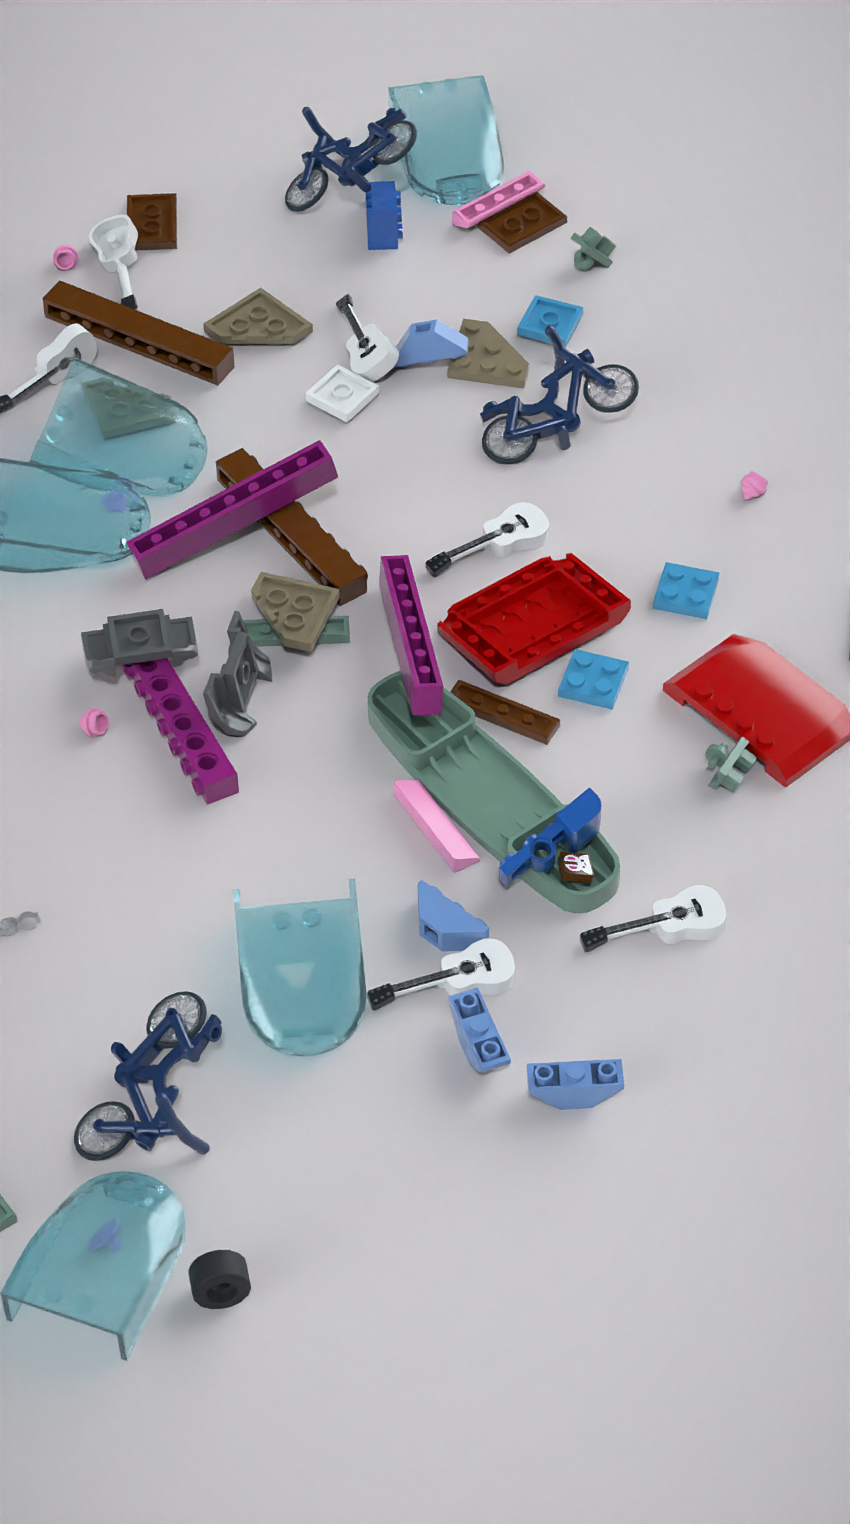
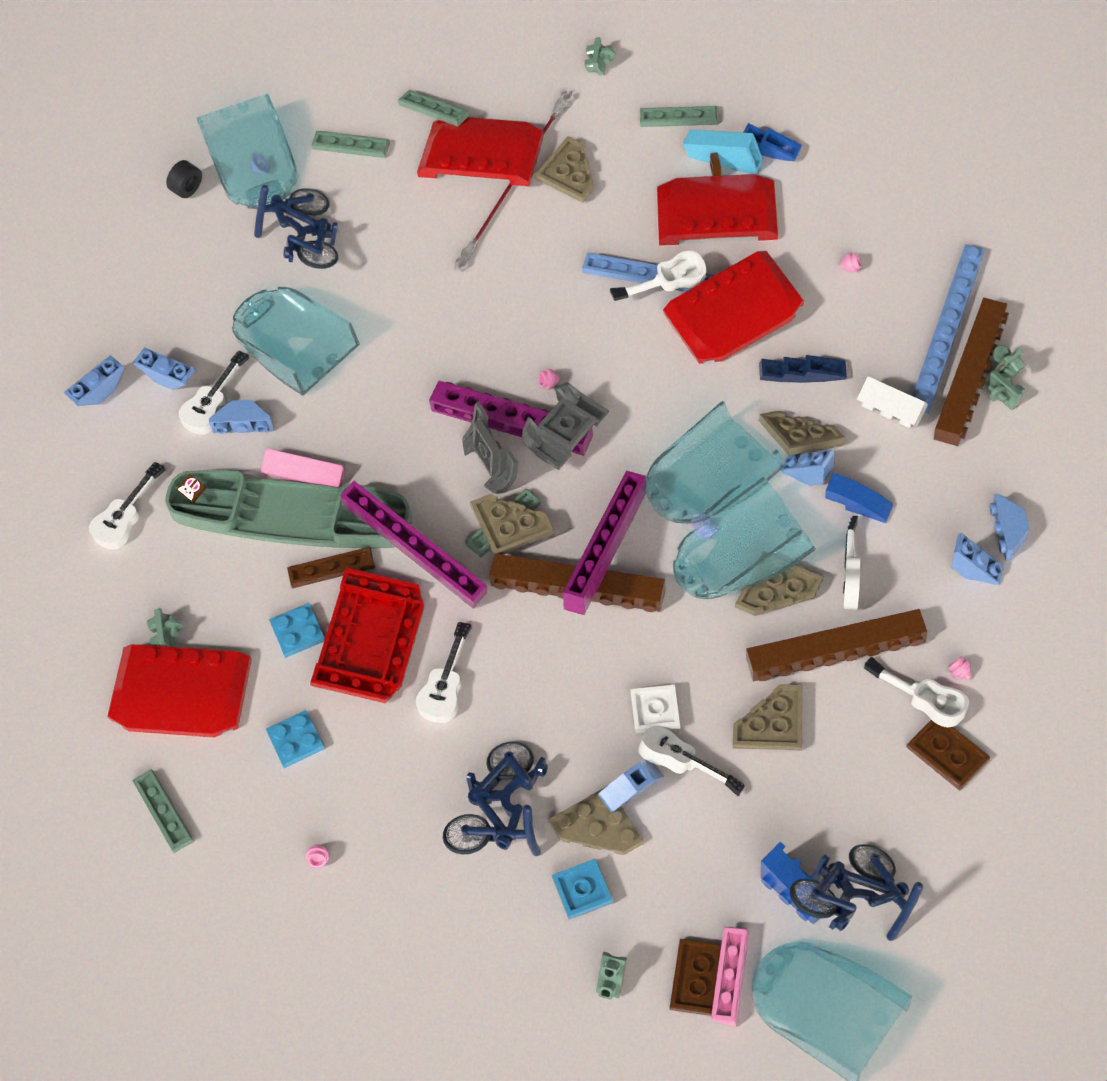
camera: 145 degrees right, 10 degrees up
(573, 828) = (201, 485): blue plate -> none

